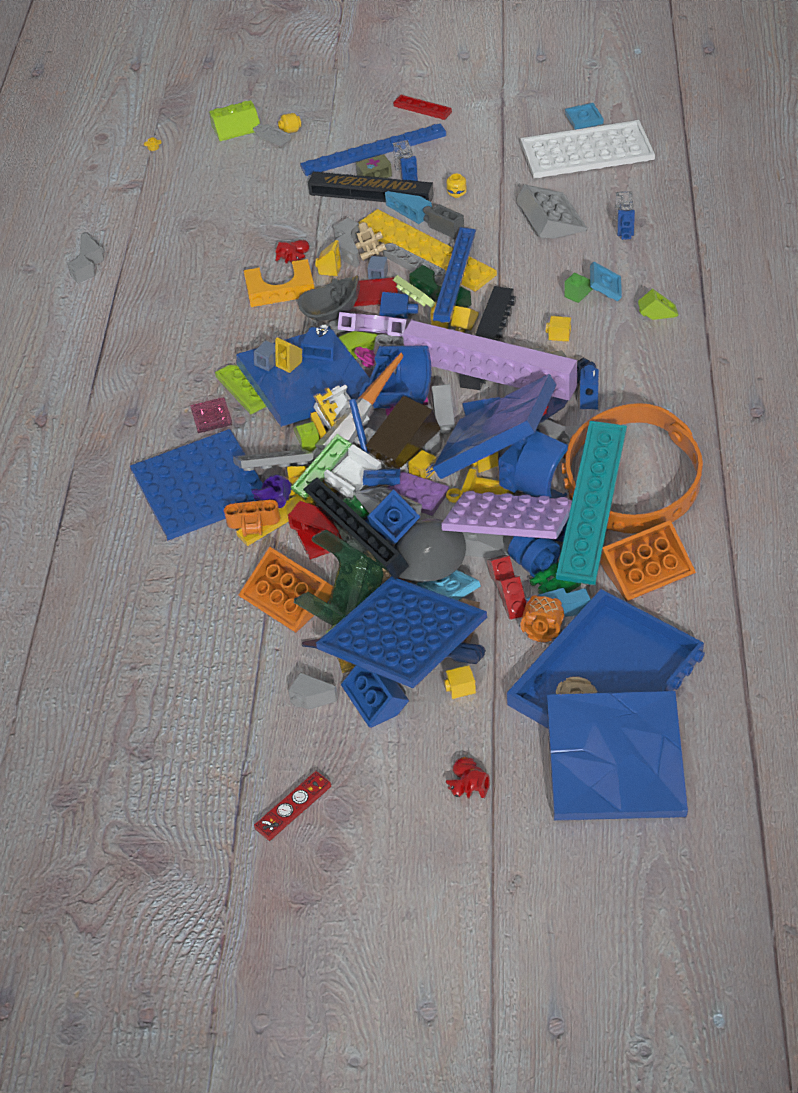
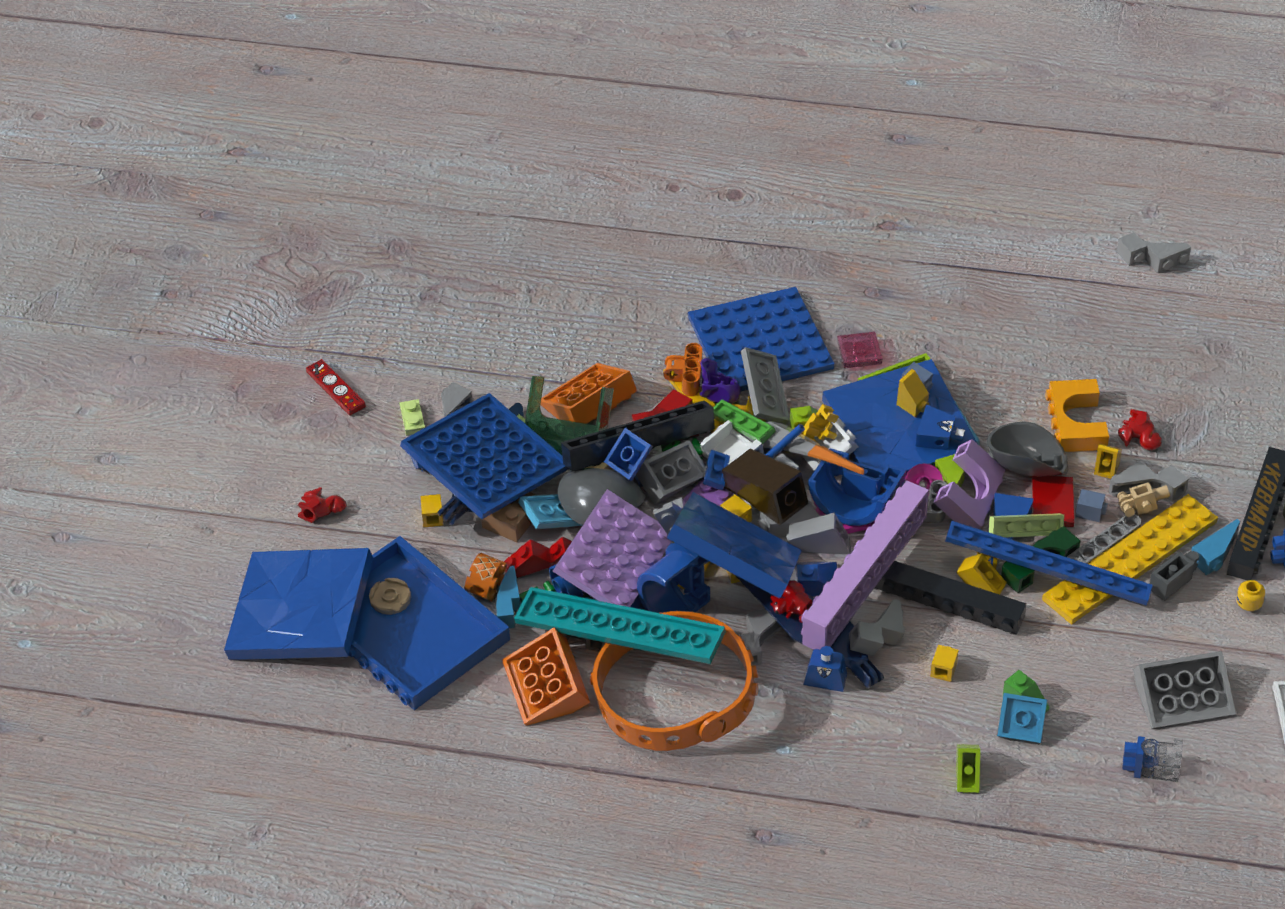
camera: 95 degrees right, 0 degrees up
(329, 728) = (412, 416): none -> yellowish green plate
(462, 480) = (669, 513): none -> light grey arch

